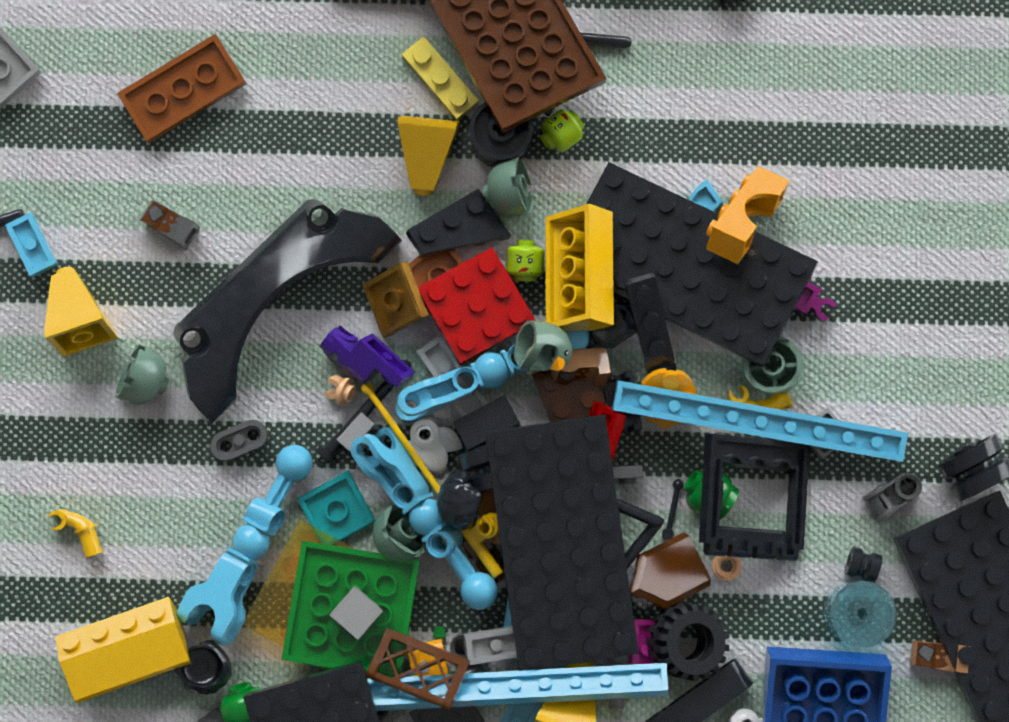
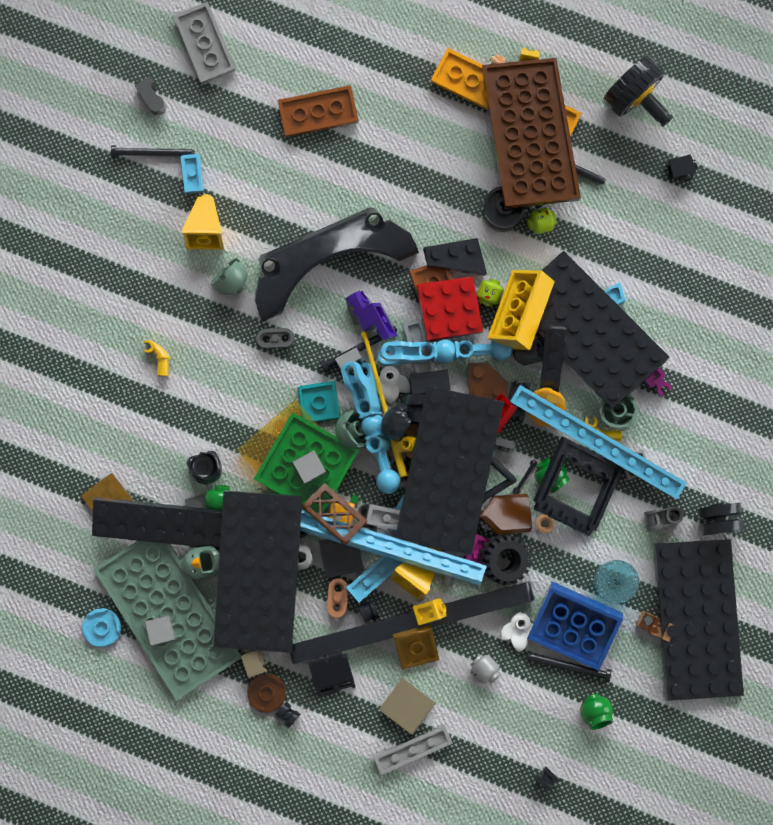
camera: 20 degrees right, 0 degrees up
(122, 649) = (160, 438): yellow slope -> none
(170, 224) = (281, 191): leg -> none
(250, 542) = (260, 402): medium azure piece -> none
(344, 390) = (350, 332): light nougat plate -> none
(395, 299) = (401, 287): pearl gold tile -> none
(426, 149) = (454, 202): yellow slope -> none
(440, 78) = (478, 162): light yellow plate -> none
(509, 189) = (496, 243): sand green cylinder -> none
(542, 346) = (481, 347): sand green piece -> none
(585, 365) = (501, 368): medium nougat leg -> none
(758, 196) = (649, 304): light orange arch -> none
(863, 564) = (626, 549): black wheel -> none

